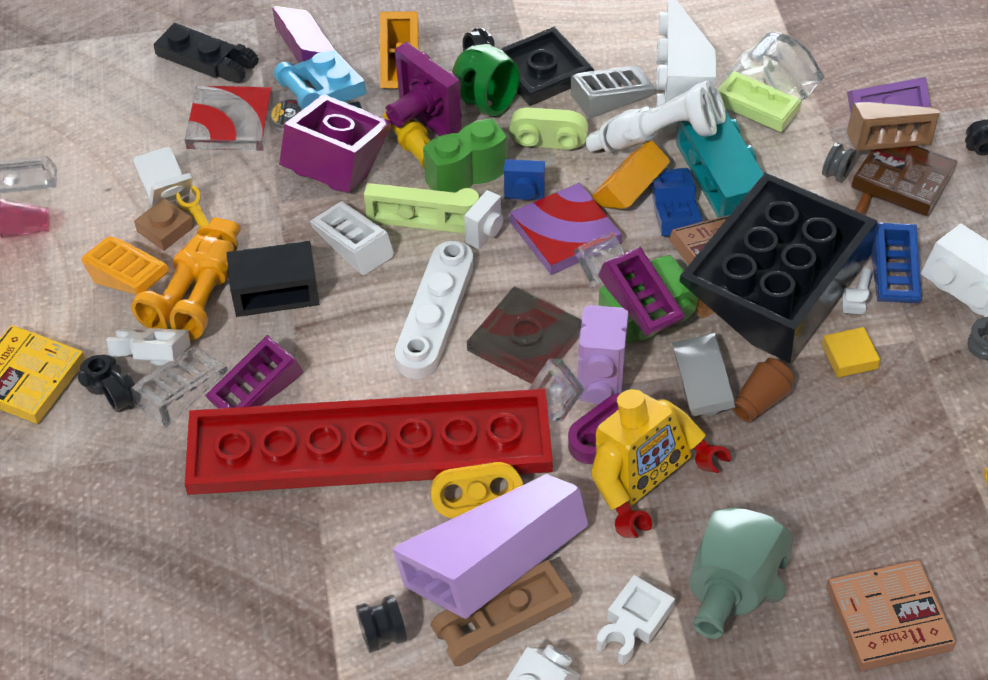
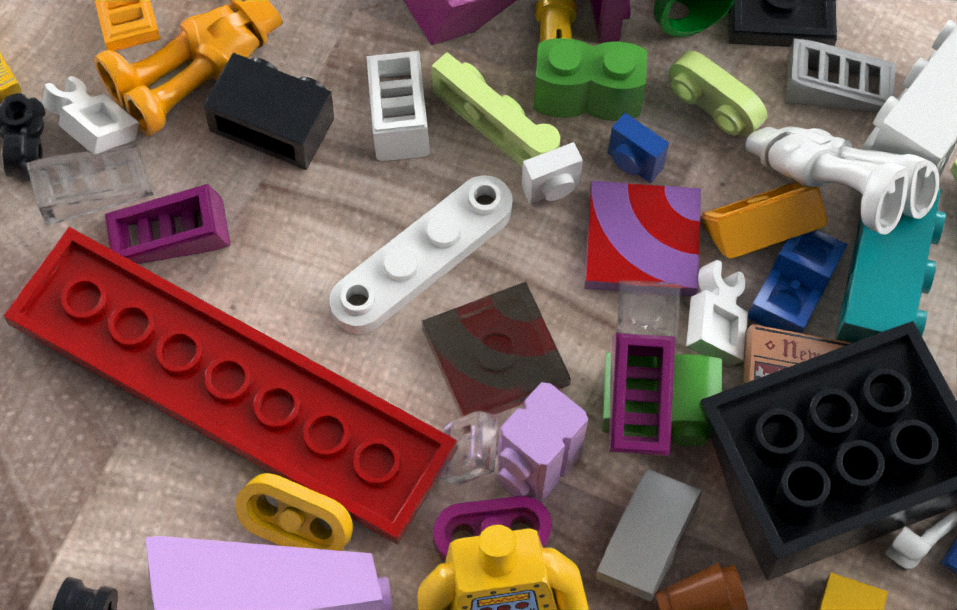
camera: 30 degrees right, 15 degrees up
(639, 233) = (715, 320): none -> white plate

